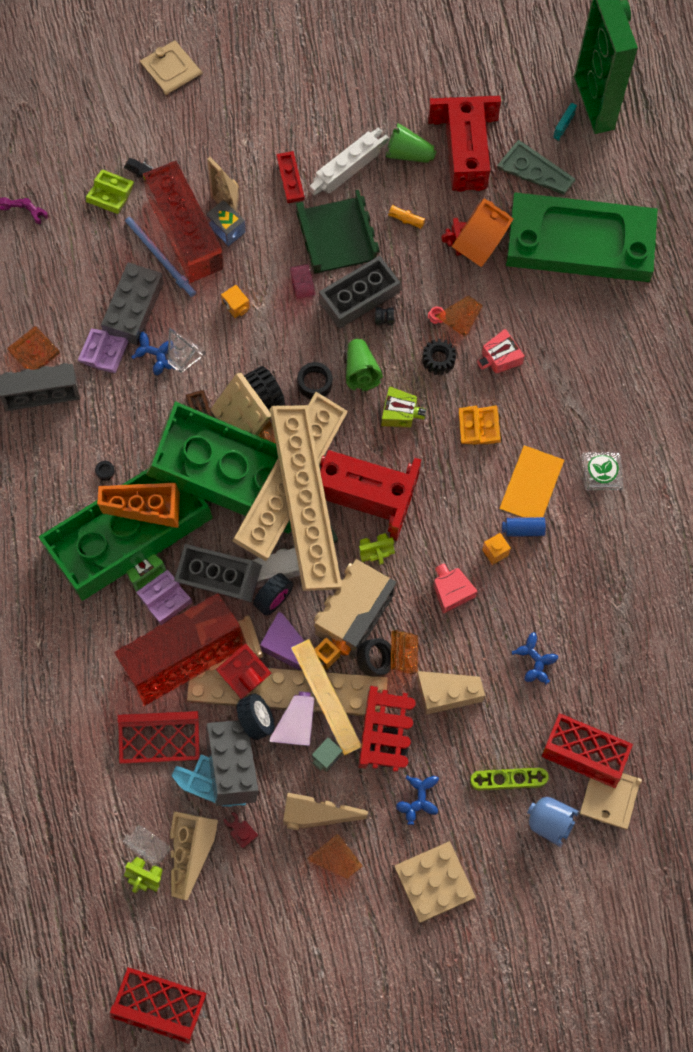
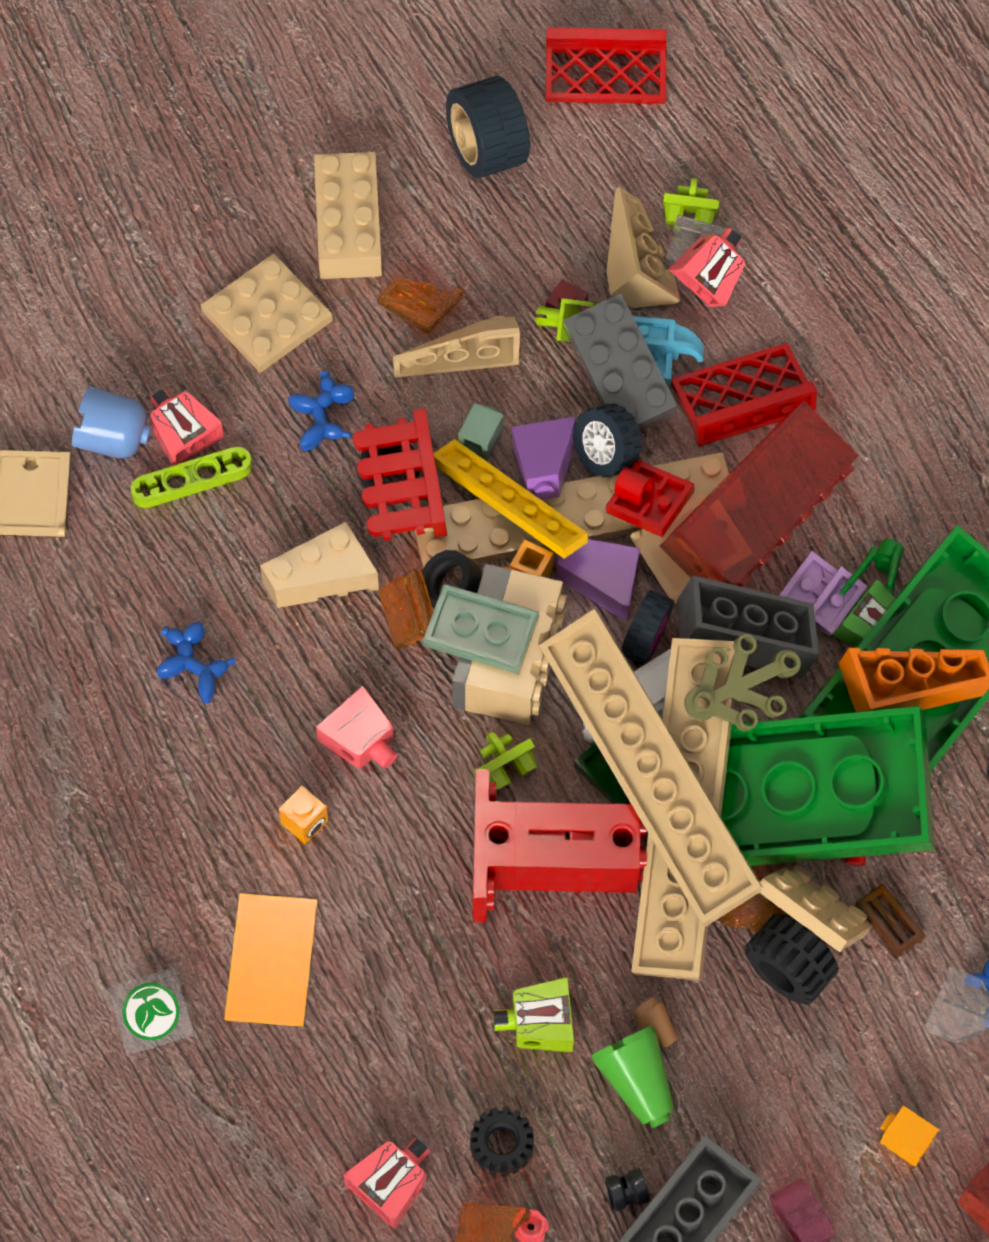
camera: 165 degrees right, 5 degrees down
(117, 603) = (887, 560): none -> green plant
(149, 818) = (711, 267): none -> coral torso
(249, 814) = (556, 317): none -> lime bracket
(256, 963) = (487, 126): none -> black wheel
(263, 511) = (737, 686): none -> olive plant
(314, 367) = (718, 1003): black tyre -> none
(342, 392) = (655, 1014): none -> medium nougat cone
(365, 934) = (347, 215): none -> tan brick
(371, 605) = (480, 628): none -> sand green tile
(479, 425) = (391, 1035): light orange slope -> none
(507, 812) = (183, 426): none -> coral torso
(524, 526) = (265, 868): blue brick -> none
(585, 765) = (83, 519): red fence -> none

